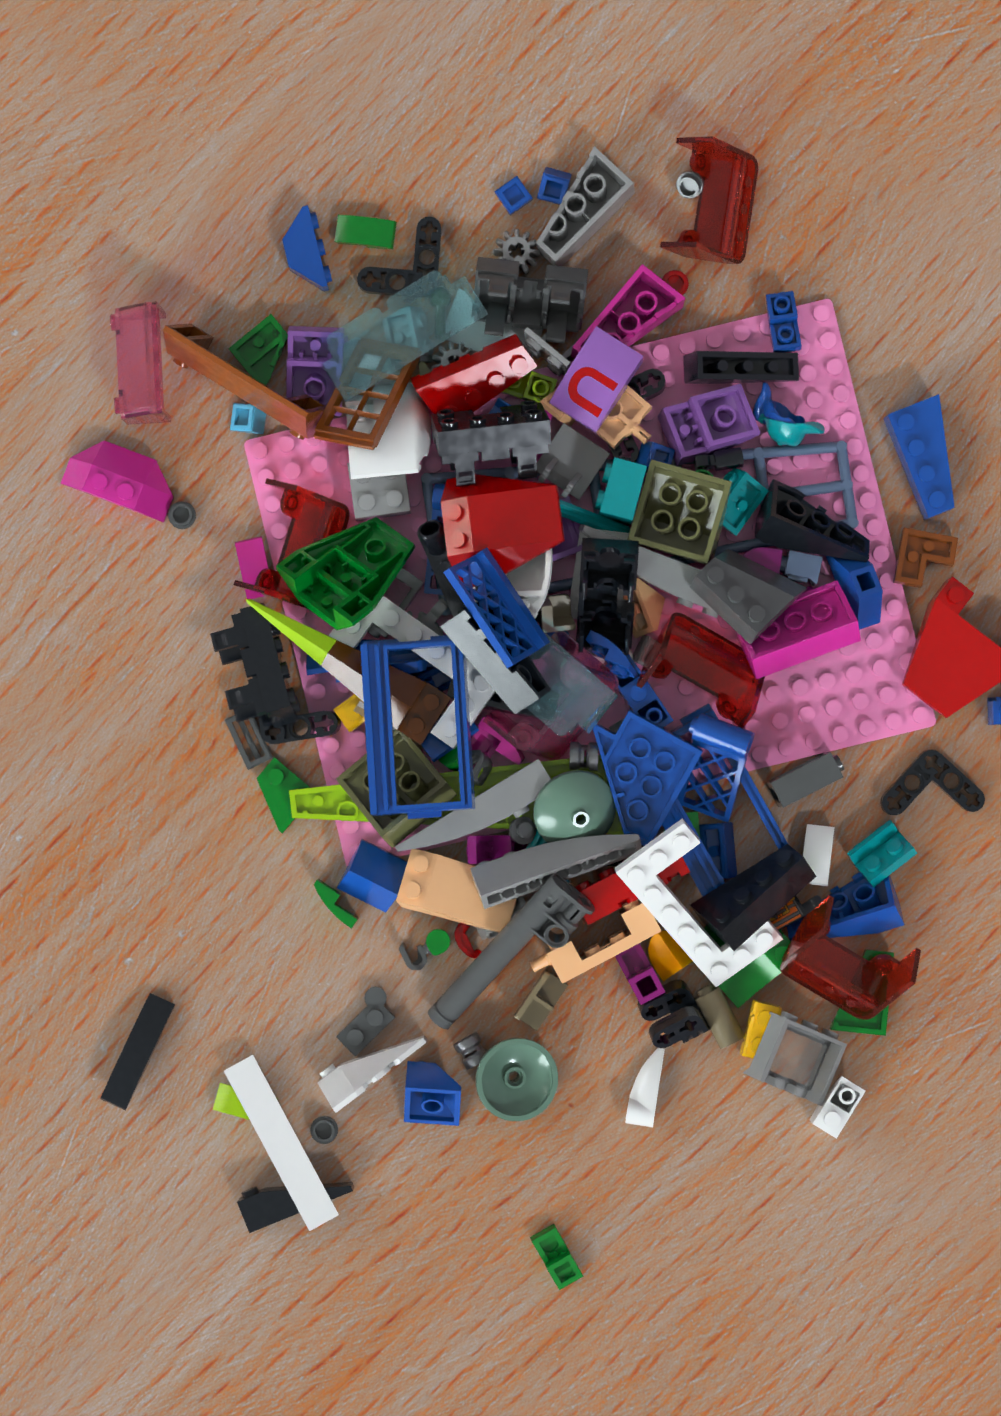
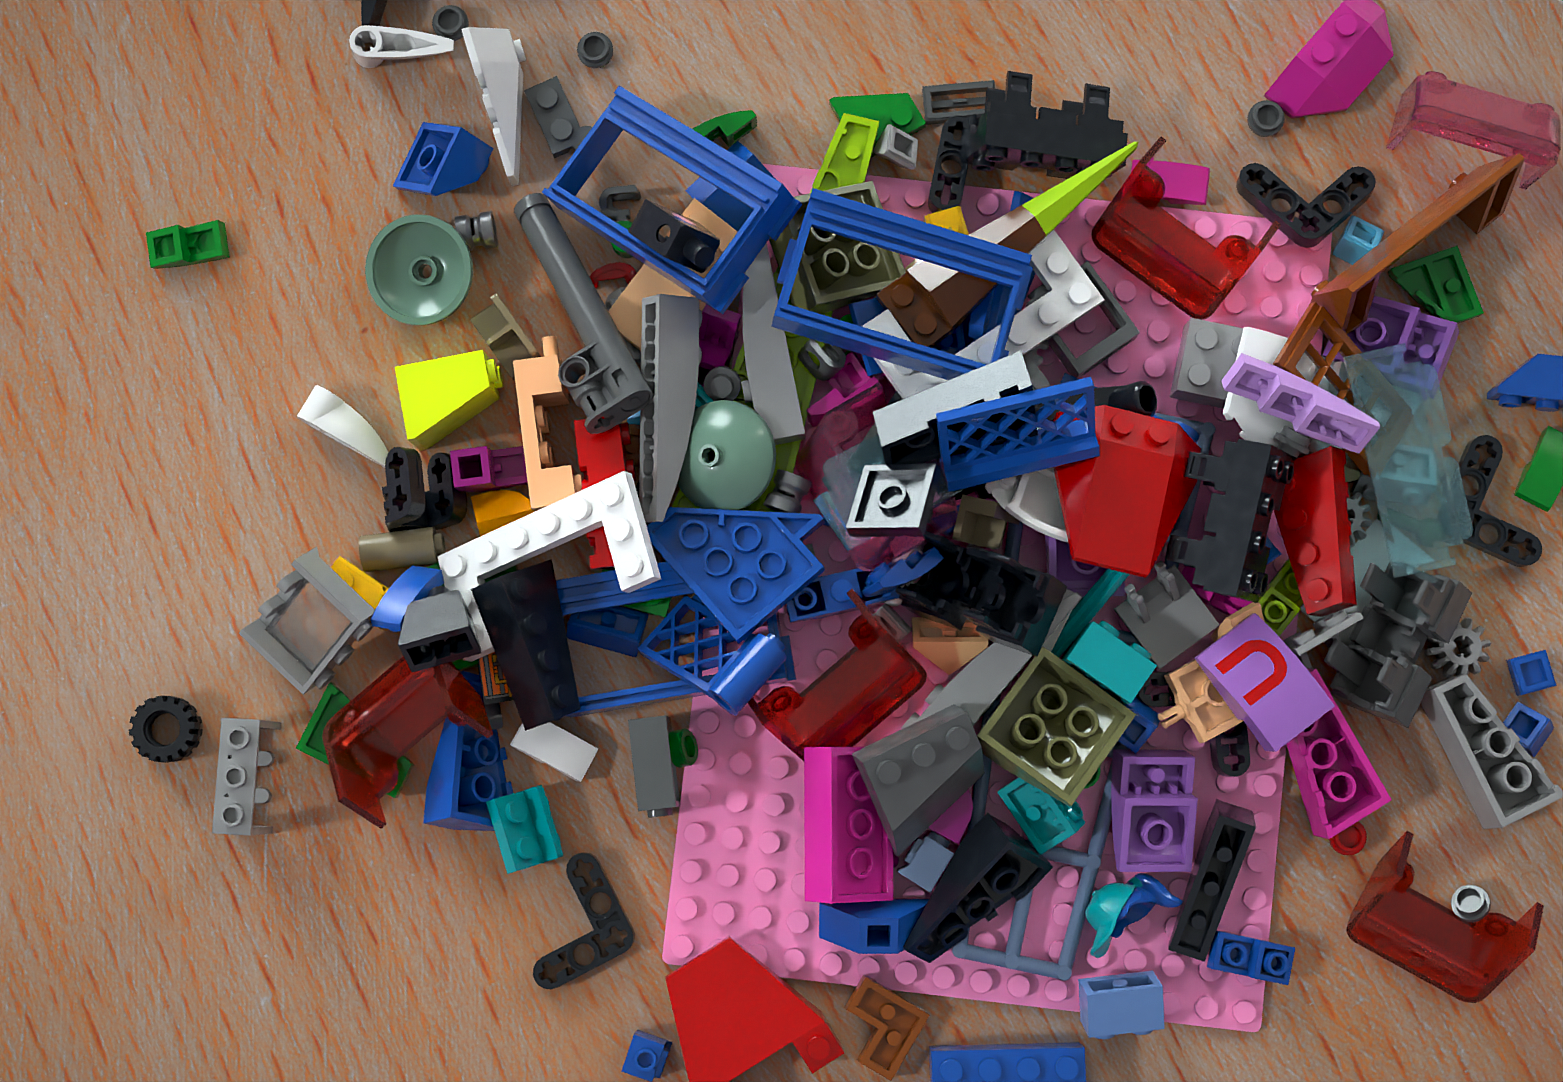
camera: 115 degrees right, 5 degrees down
(242, 458) = (1310, 214): none -> black beam
(301, 770) = (897, 147): none -> light grey slope
(306, 1016) = (595, 50): none -> dark grey plate
(347, 571) = (1129, 280): green wedge -> none
(356, 1159) = (395, 44): none -> white piece
(387, 844) = (768, 198): none -> blue piece
(393, 420) = (1304, 404): none -> lavender slope
(421, 417) = (1292, 442): none -> dark grey plate
(439, 888) = (688, 240): none -> black torso
(573, 676) = (894, 500): none -> hinge
(599, 1025) = (445, 394): none -> neon yellow slope
(720, 460) = (1101, 807): black bar -> none
(756, 996) = (409, 587): none -> slope
(771, 961) = (437, 630): none -> torso
(785, 764) = (683, 748): none -> green tile
(837, 1106) = (229, 652): white slope -> none
(849, 399) = (1121, 1004): none -> medium blue brick
(921, 1062) = (237, 777): none -> light grey window
(923, 1133) = (144, 721): none -> black tyre

